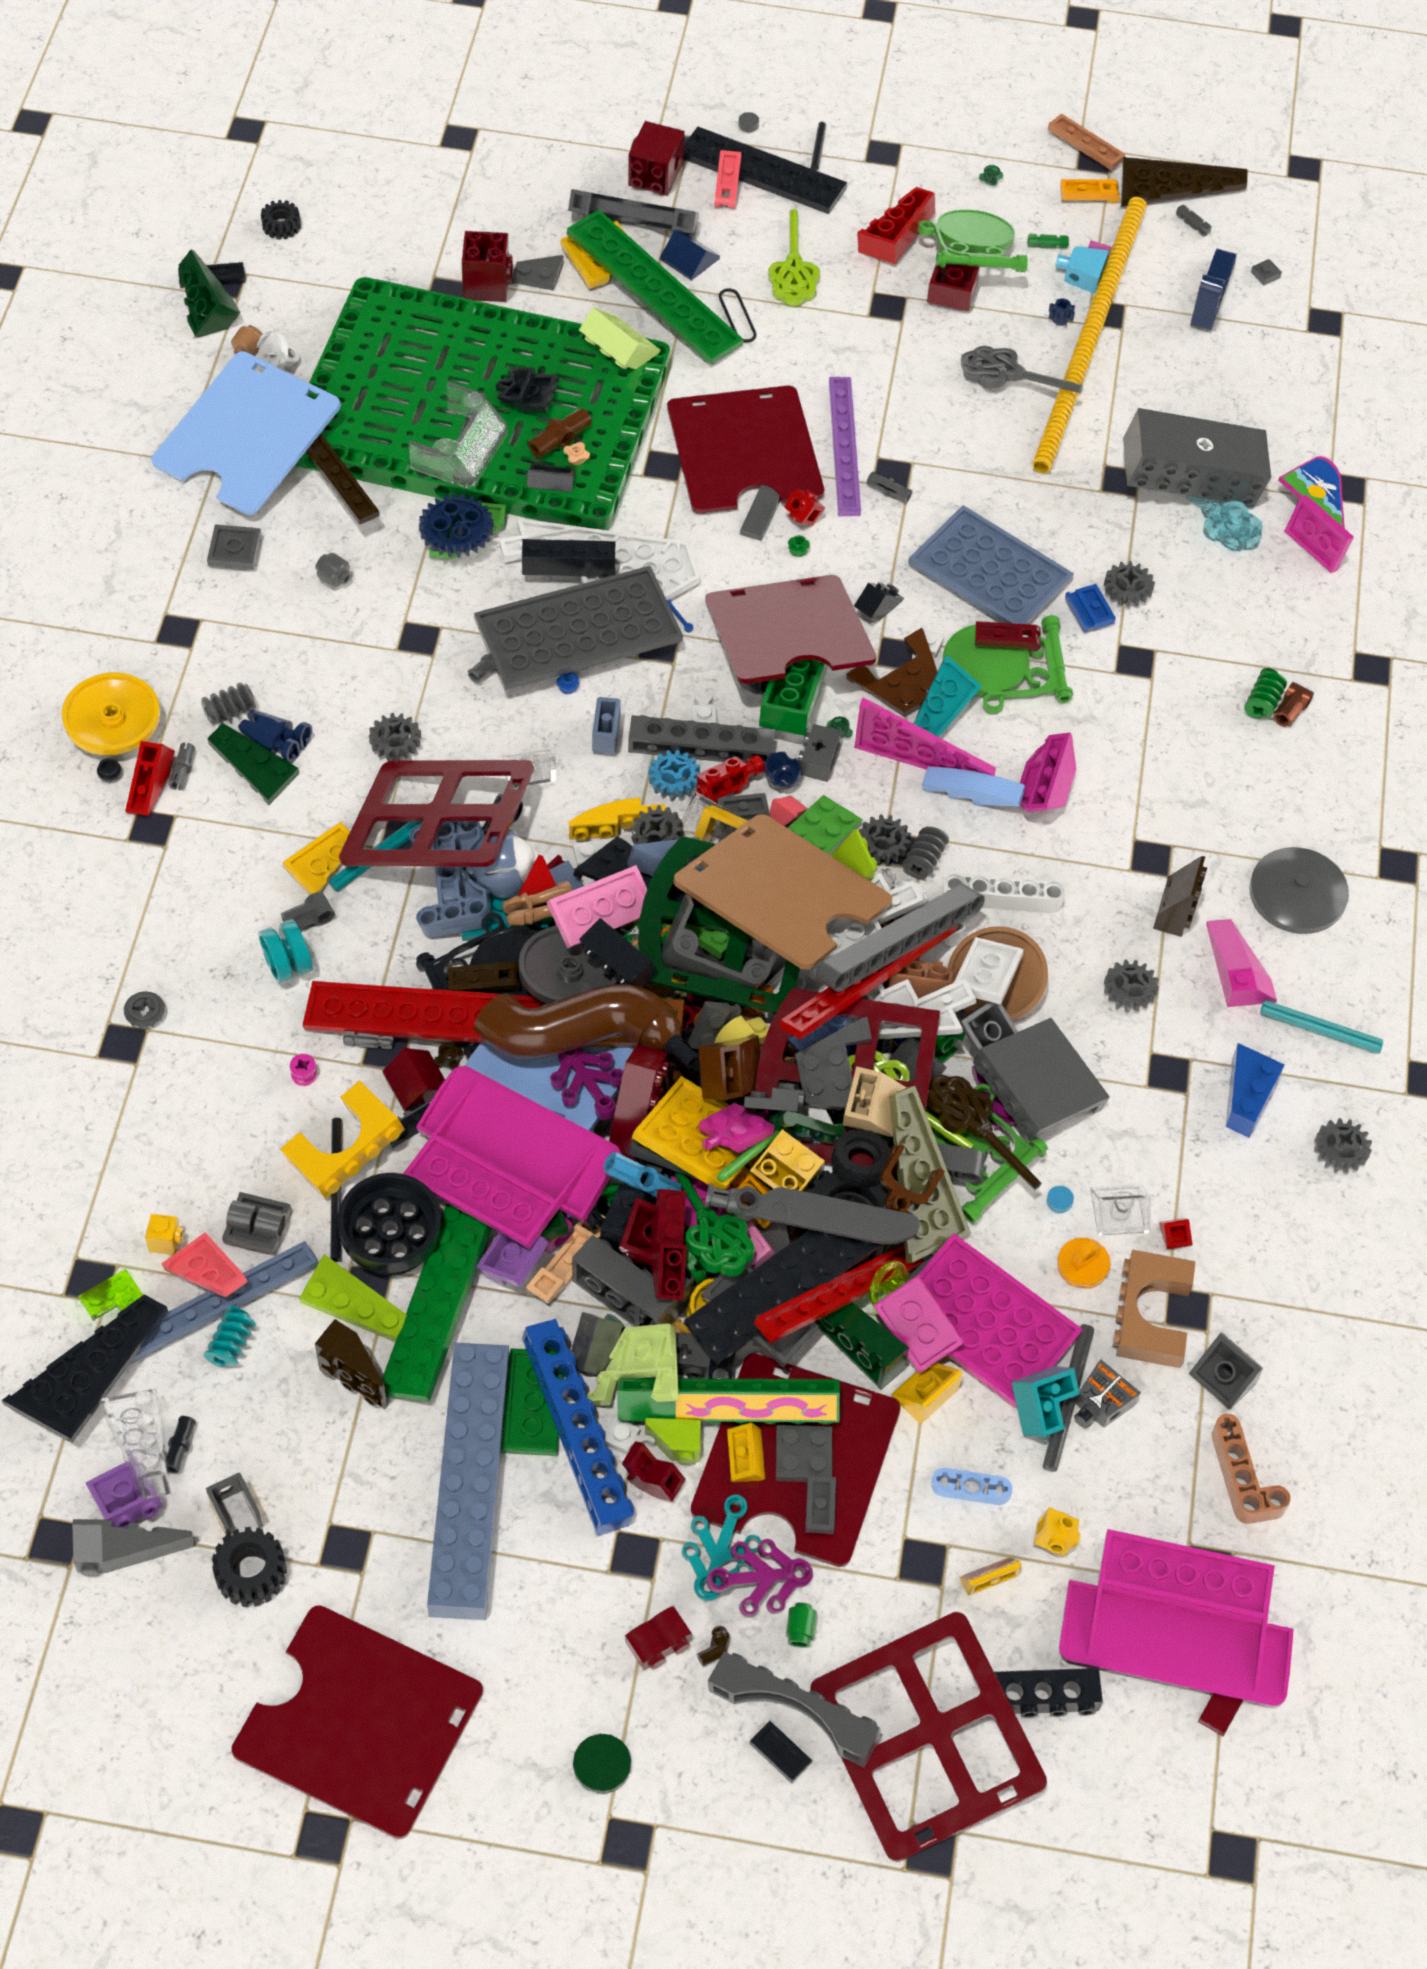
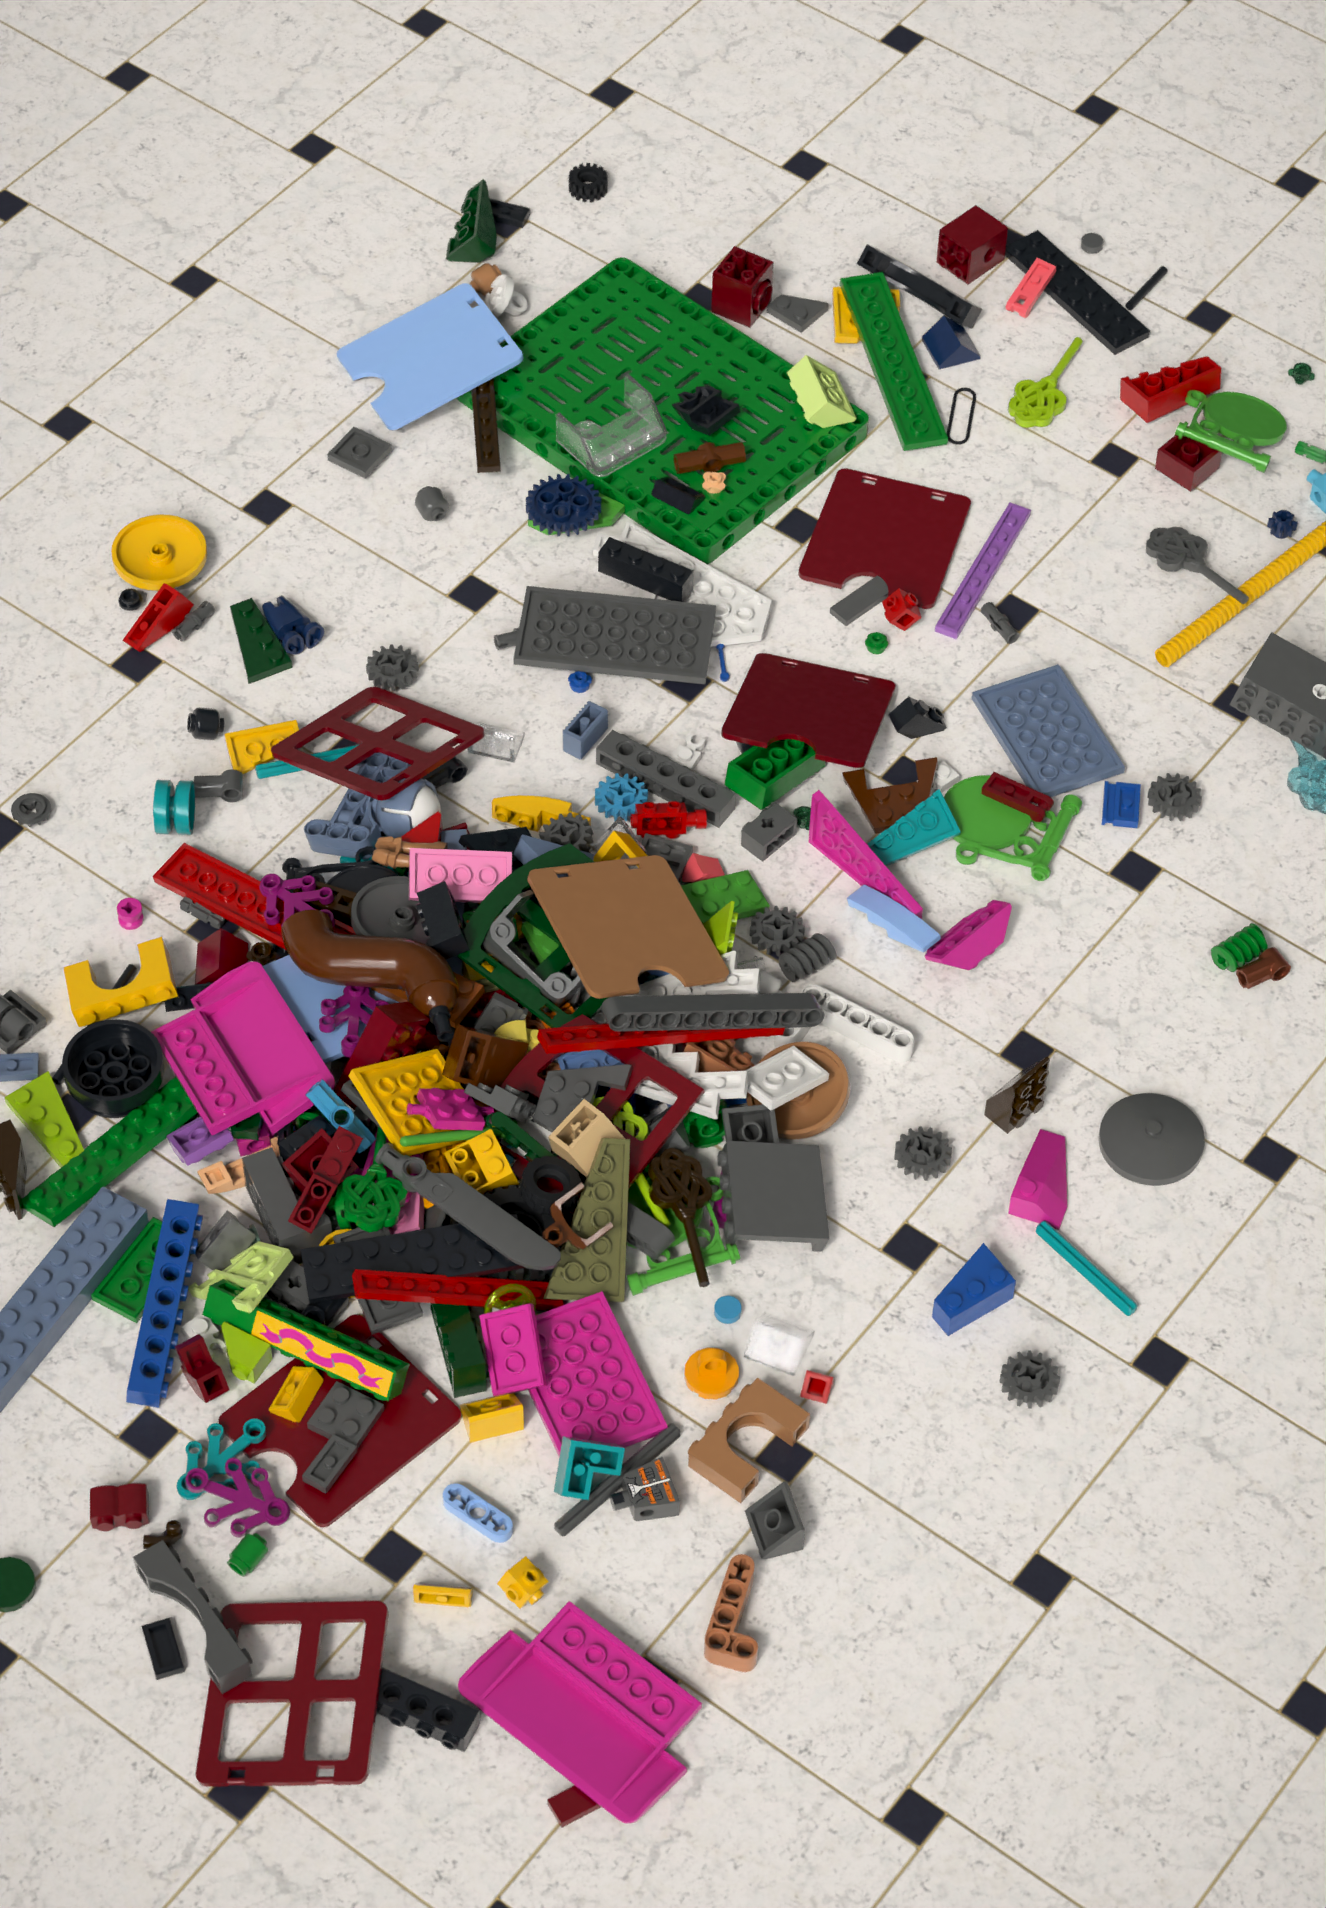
camera: 30 degrees right, 5 degrees down
(228, 702) = (266, 582): dark grey piece -> none
(257, 859) = (205, 723): none -> black head
(457, 993) = (274, 886): none -> magenta plant
(782, 770) = (721, 832): dark blue hair -> none

